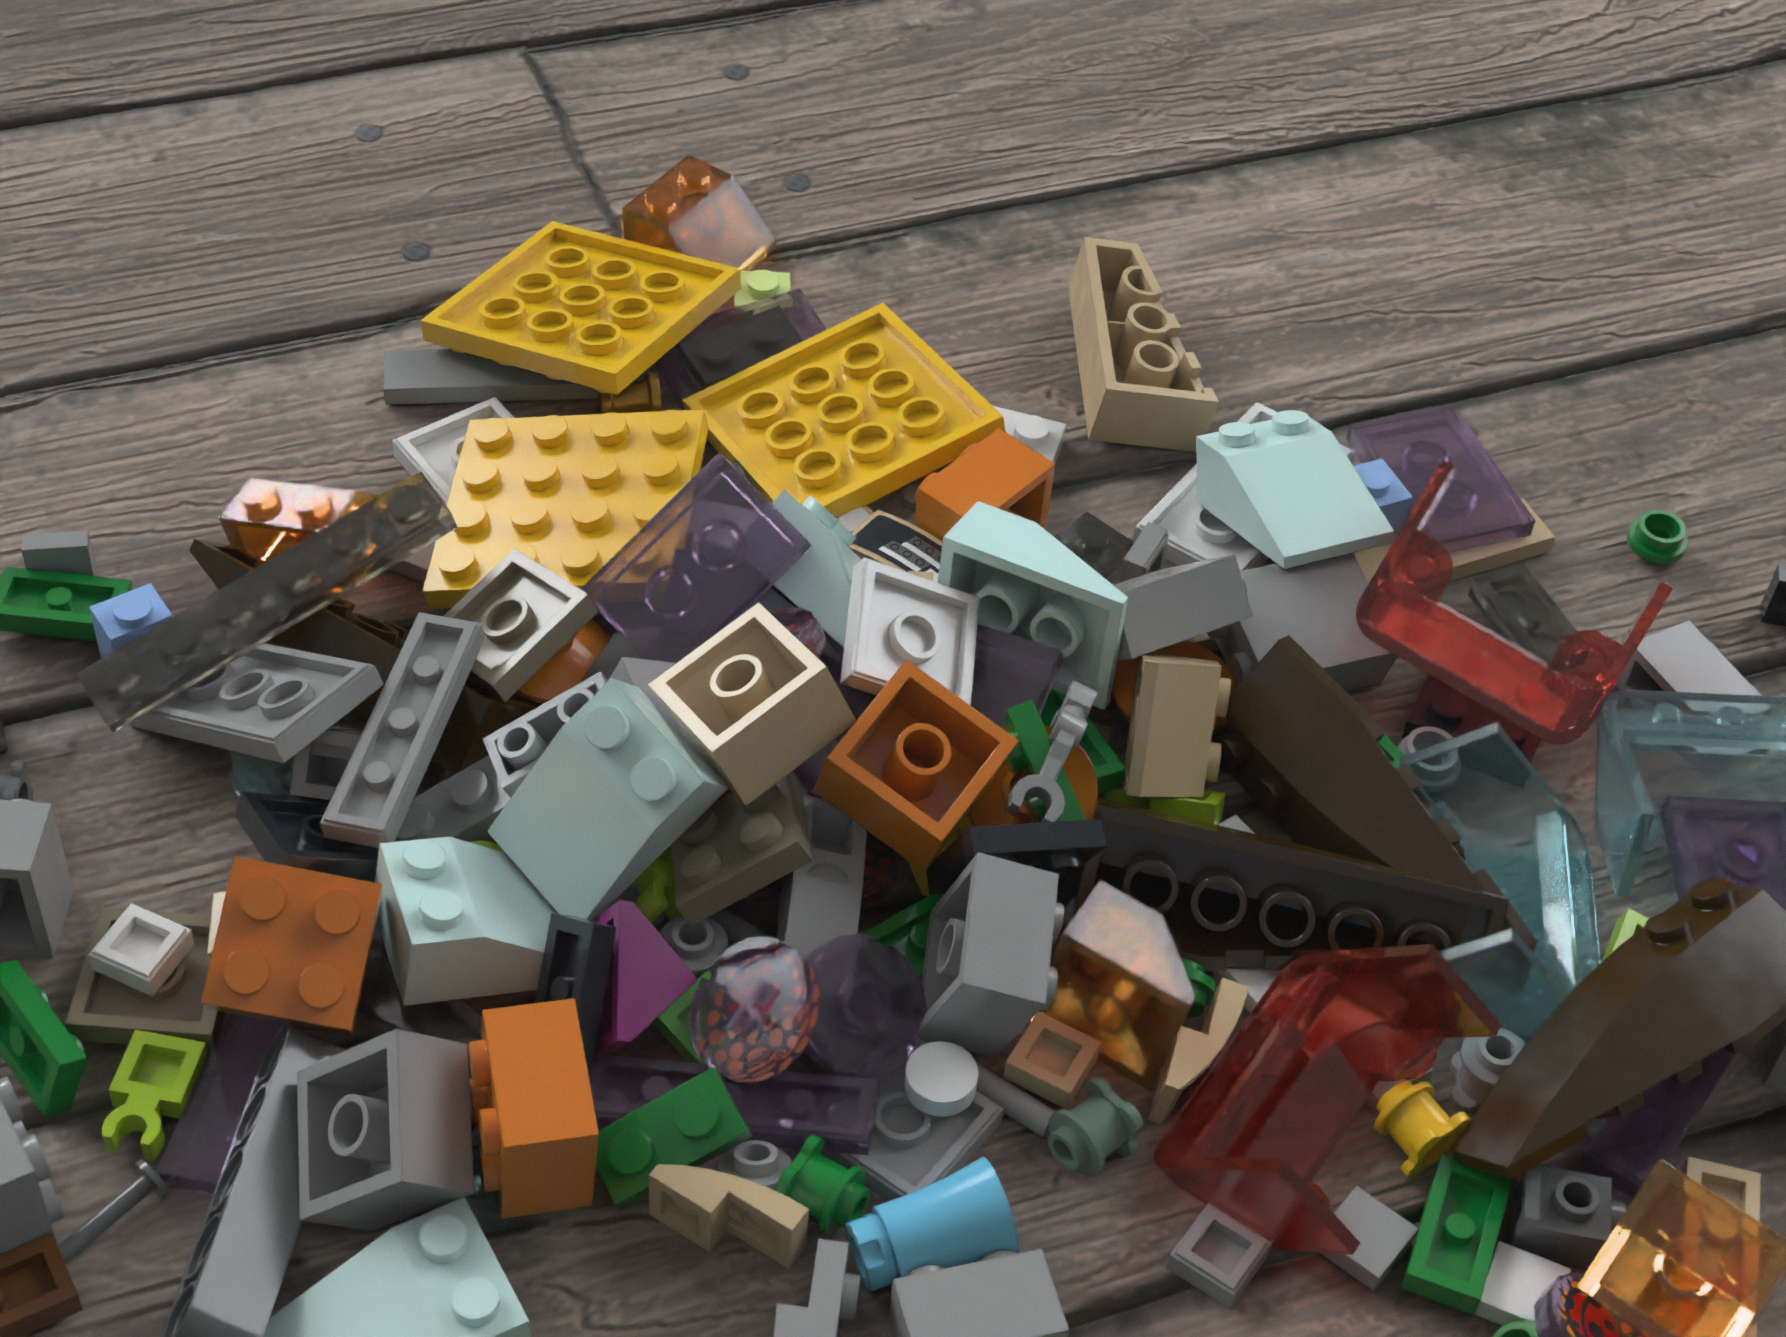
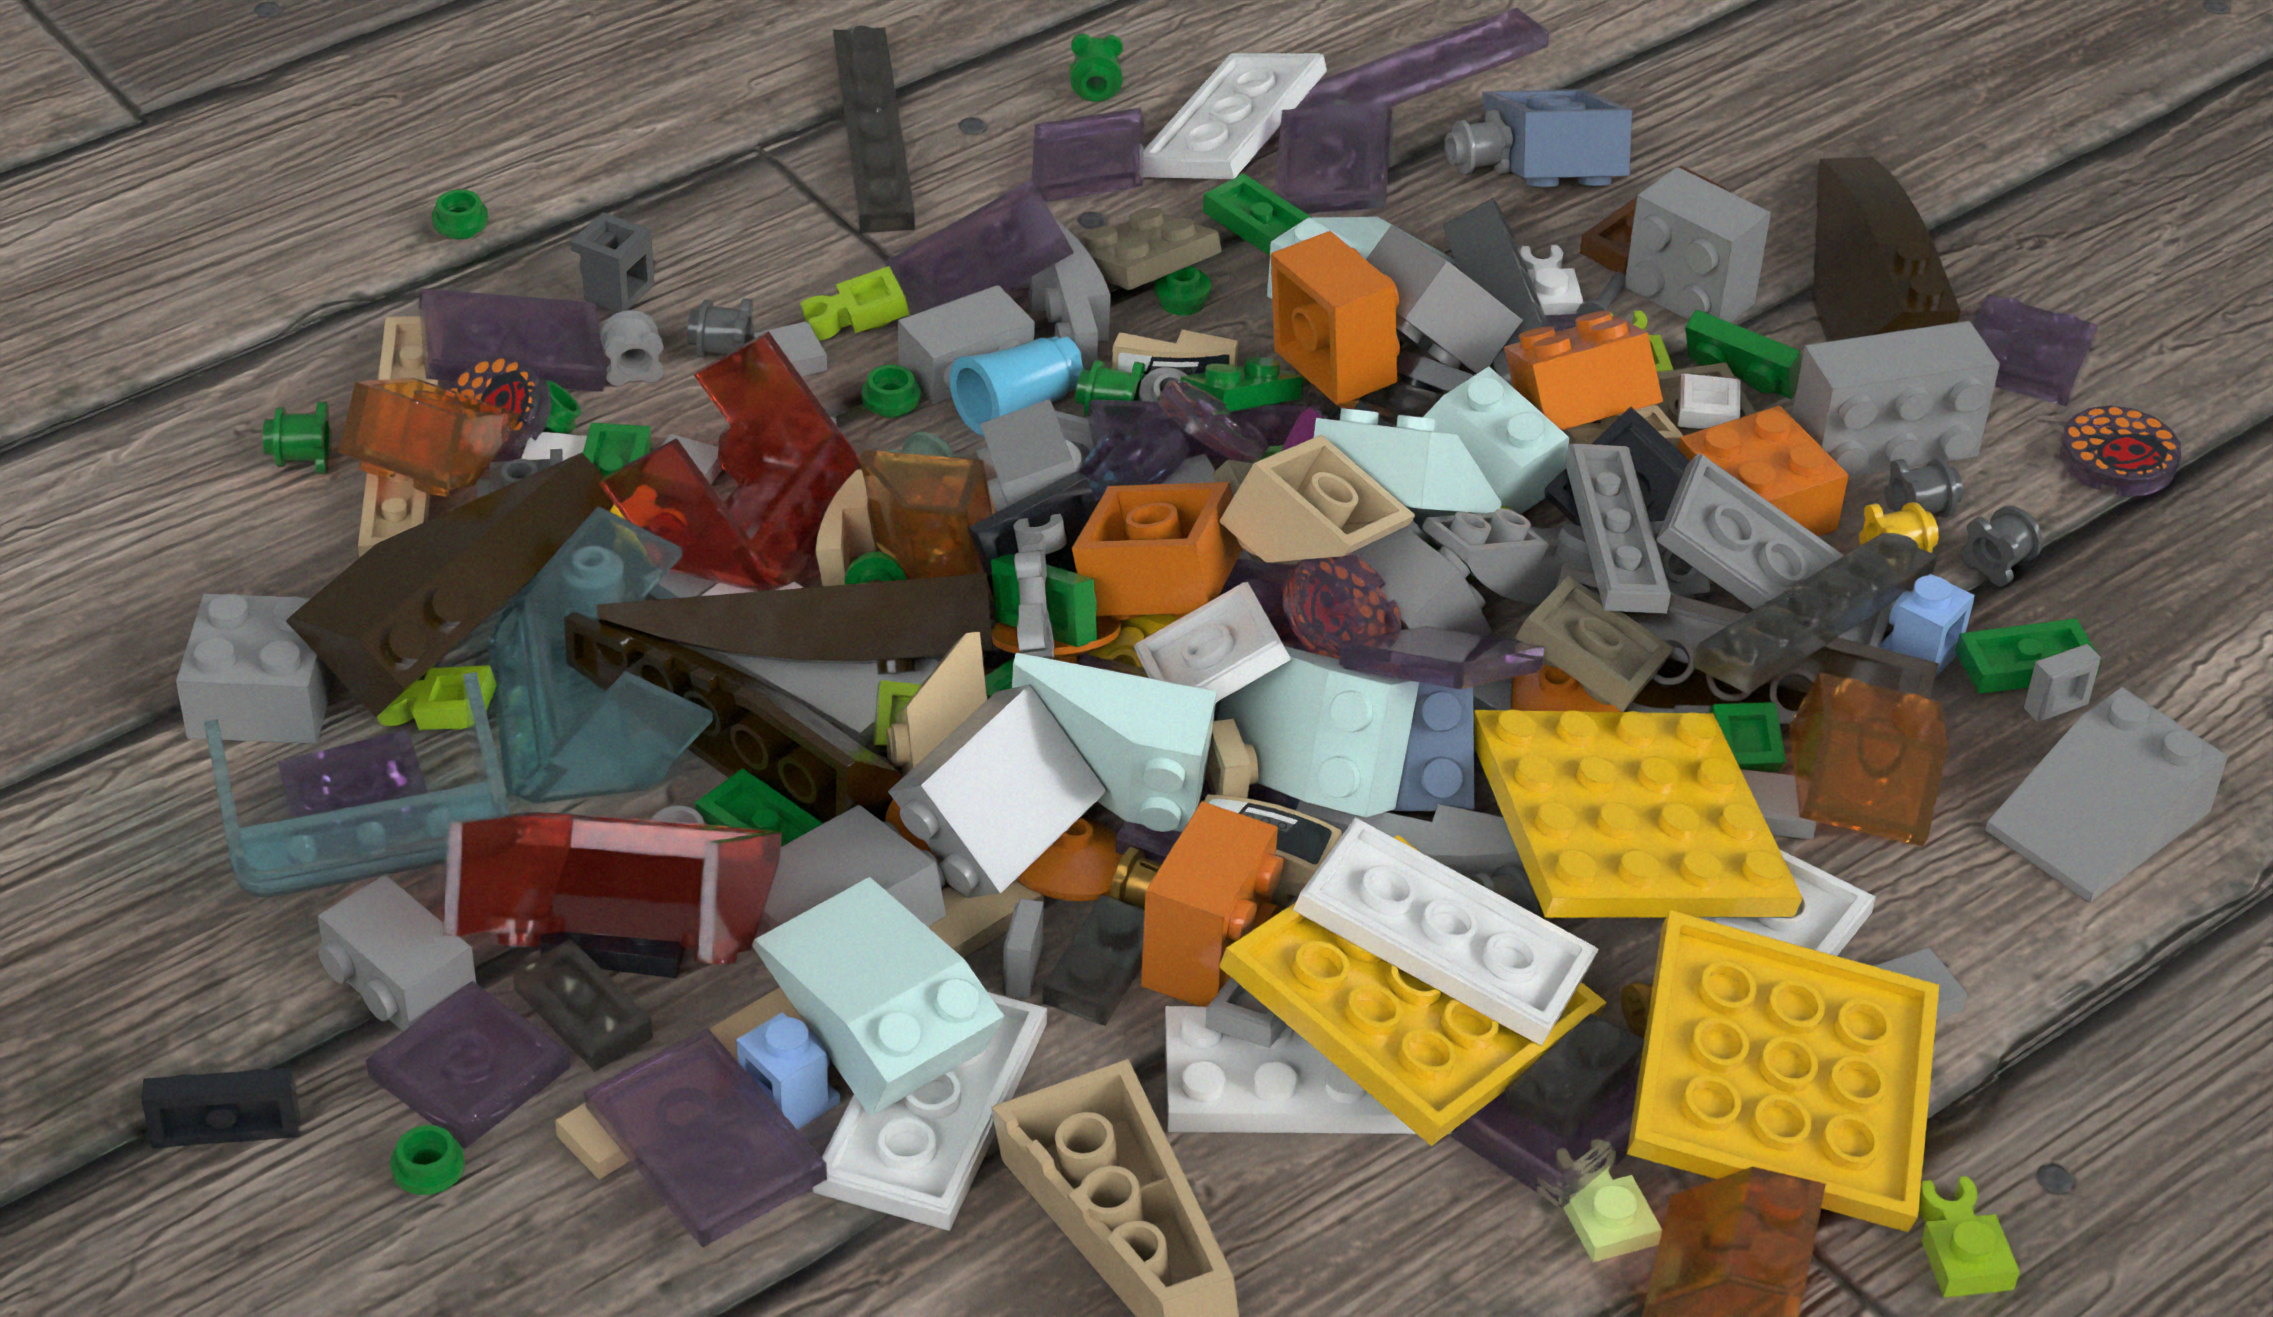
camera: 165 degrees right, 5 degrees down
(68, 754) = (1910, 521): none -> yellow brick
(119, 459) = (2110, 795): none -> light grey slope
(158, 1257) = (1554, 286): none -> white plate
(162, 836) = (1778, 463): none -> orange brick
(395, 591) = (1752, 734): none -> green plate
(520, 215) = (1965, 1249): none -> lime plate
(805, 431) = (1446, 930): none -> white tile
(1093, 1268) = (891, 391): none -> green plate
(1612, 595) = (468, 1064): none -> clear purple tile

